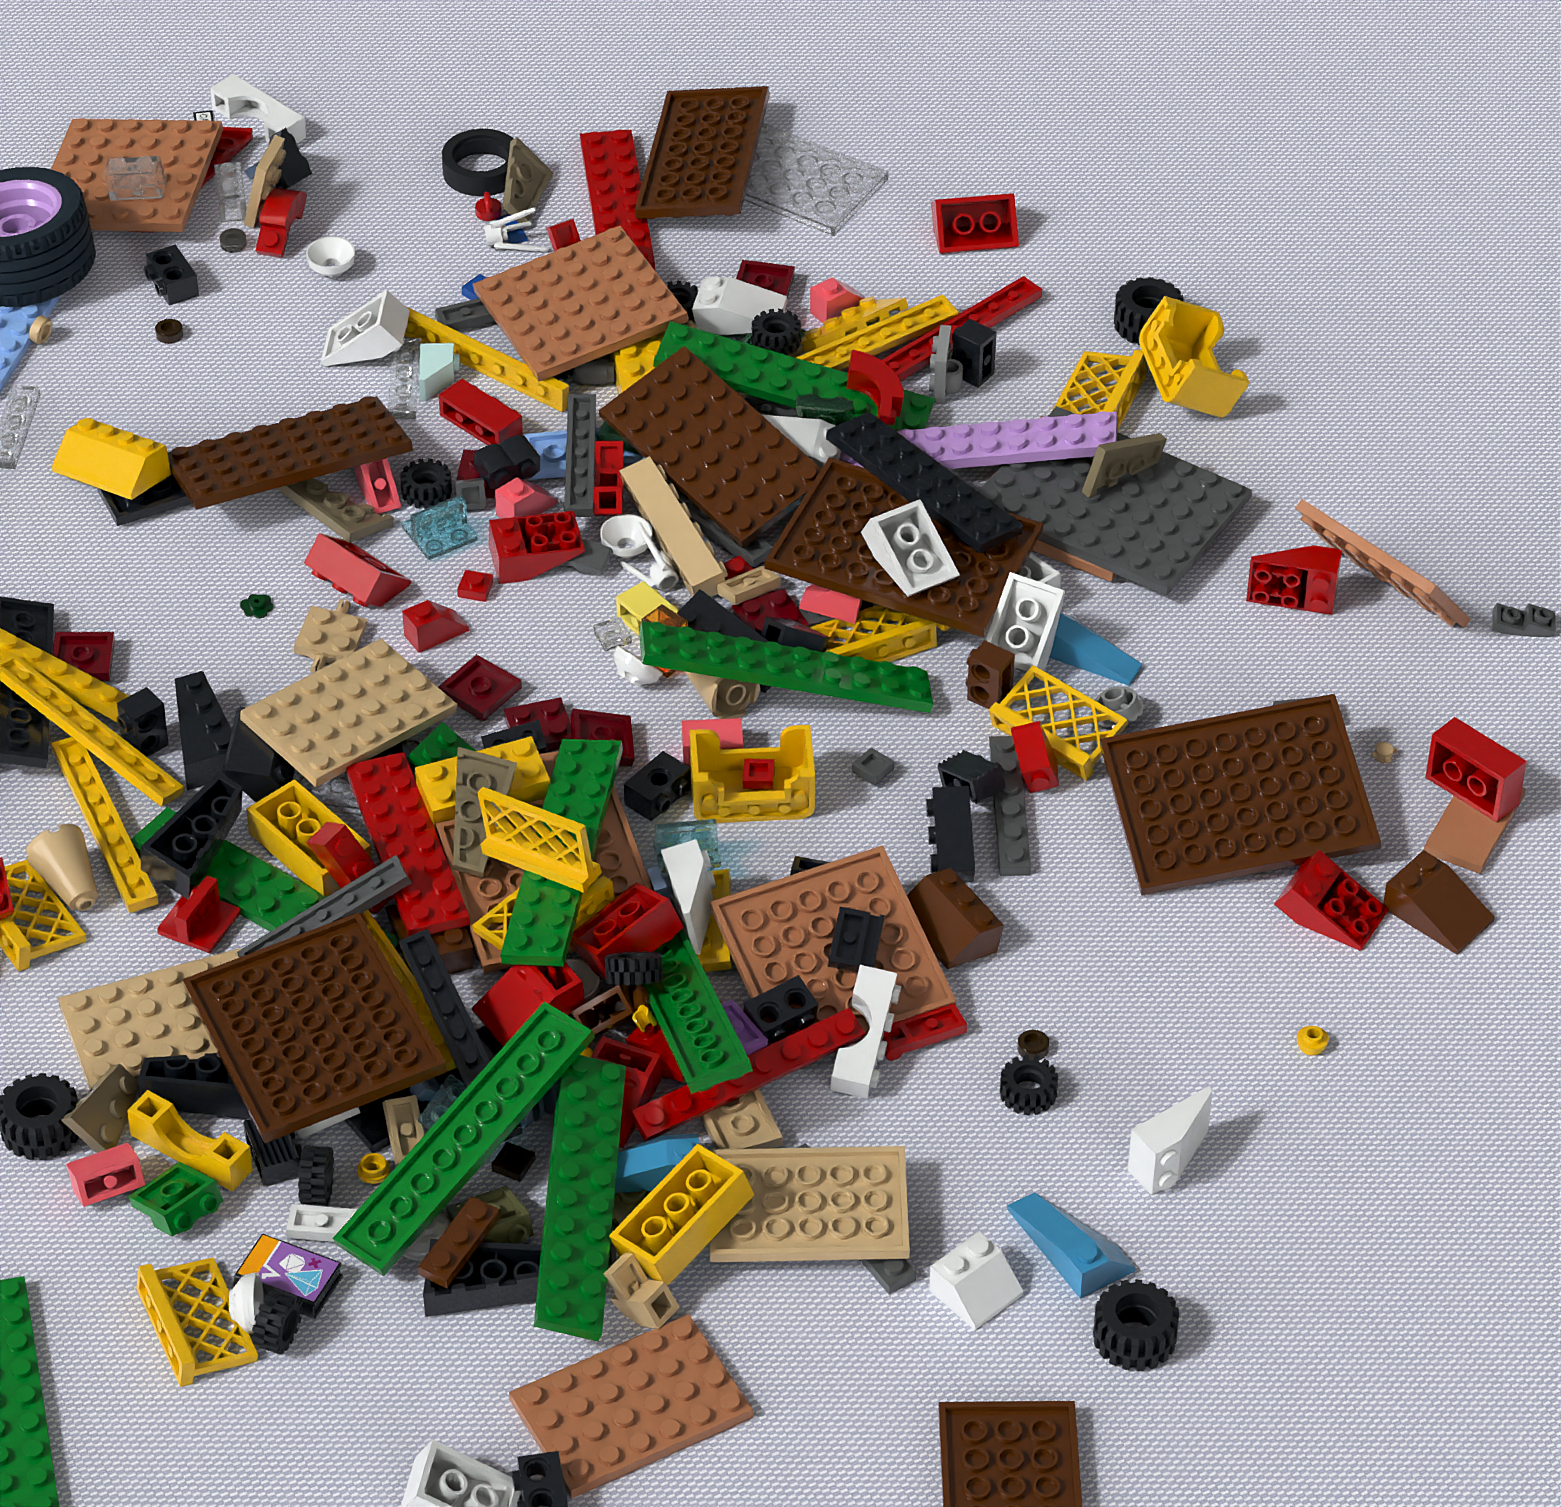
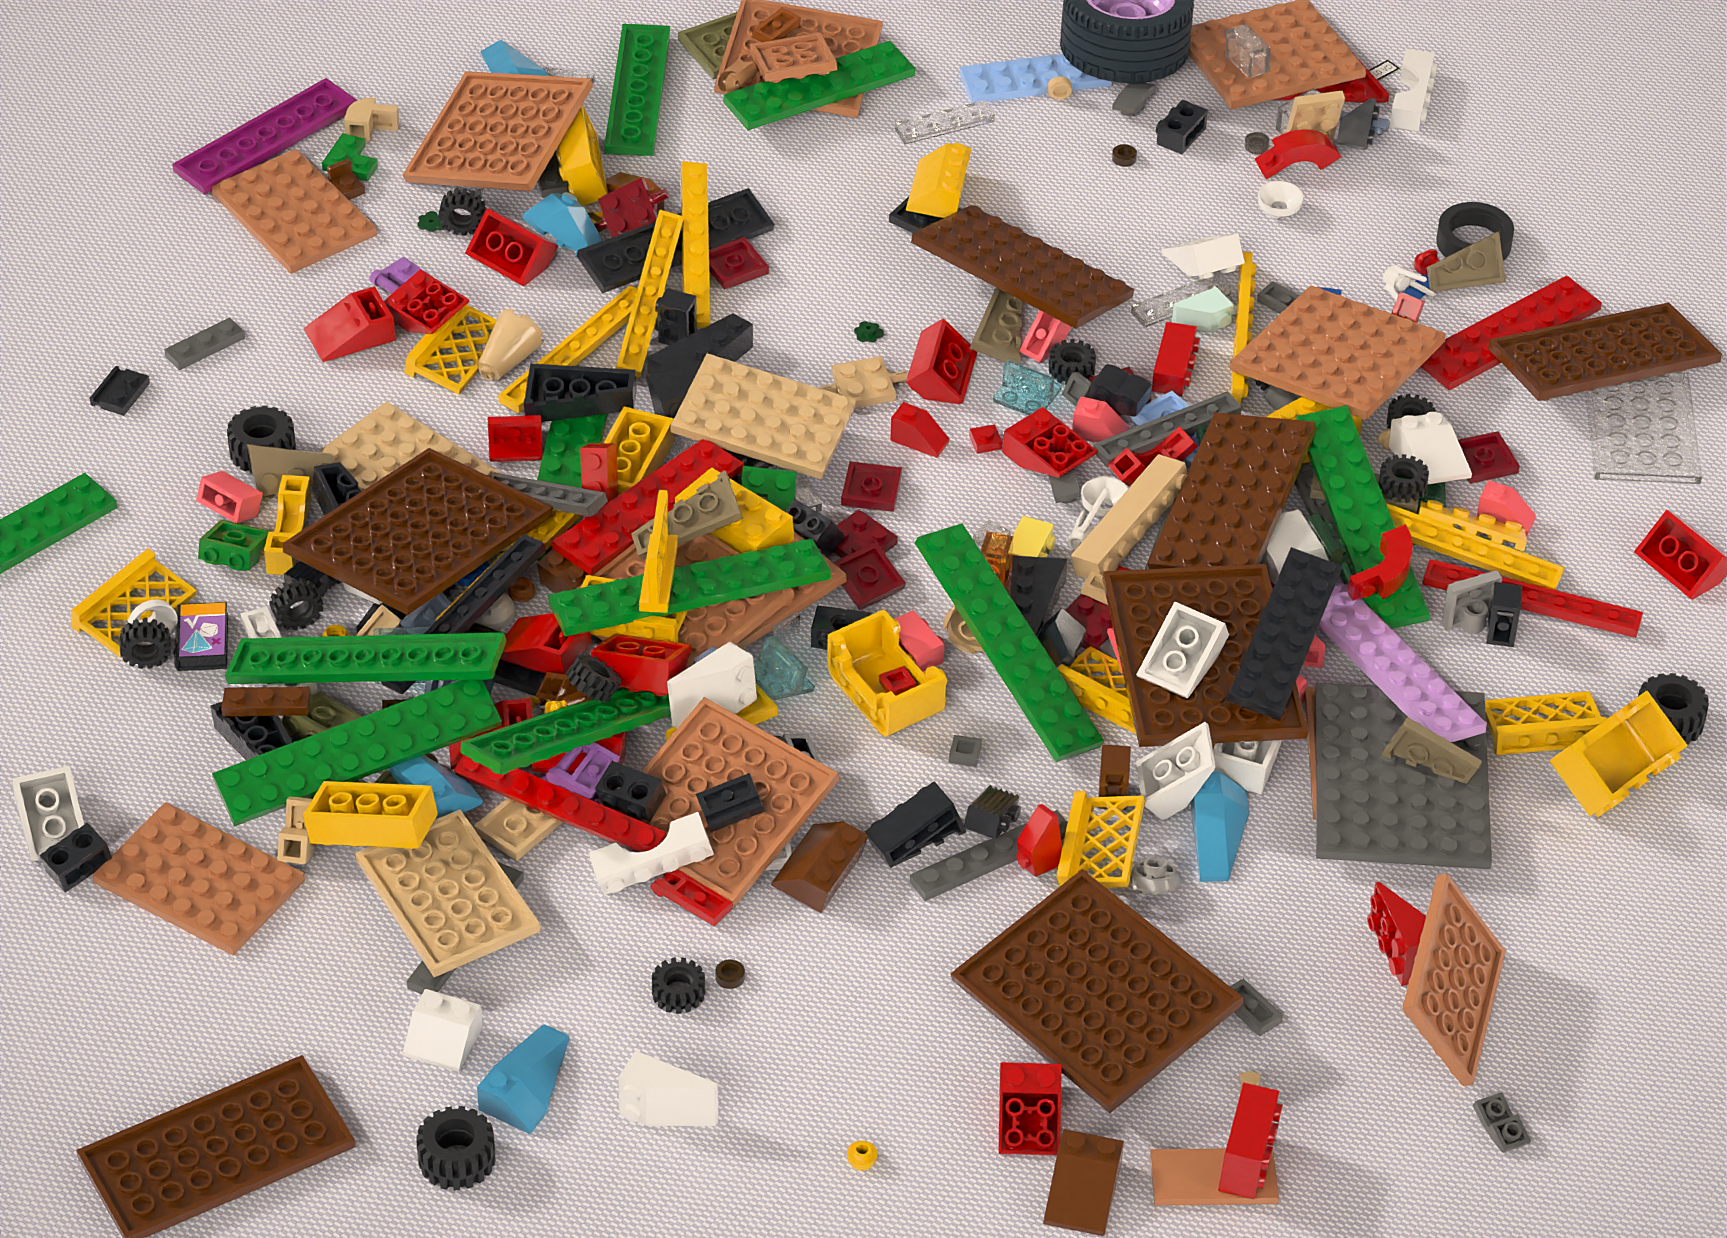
camera: 60 degrees right, 0 degrees up
(102, 288) = (1133, 98): none -> dark grey slope

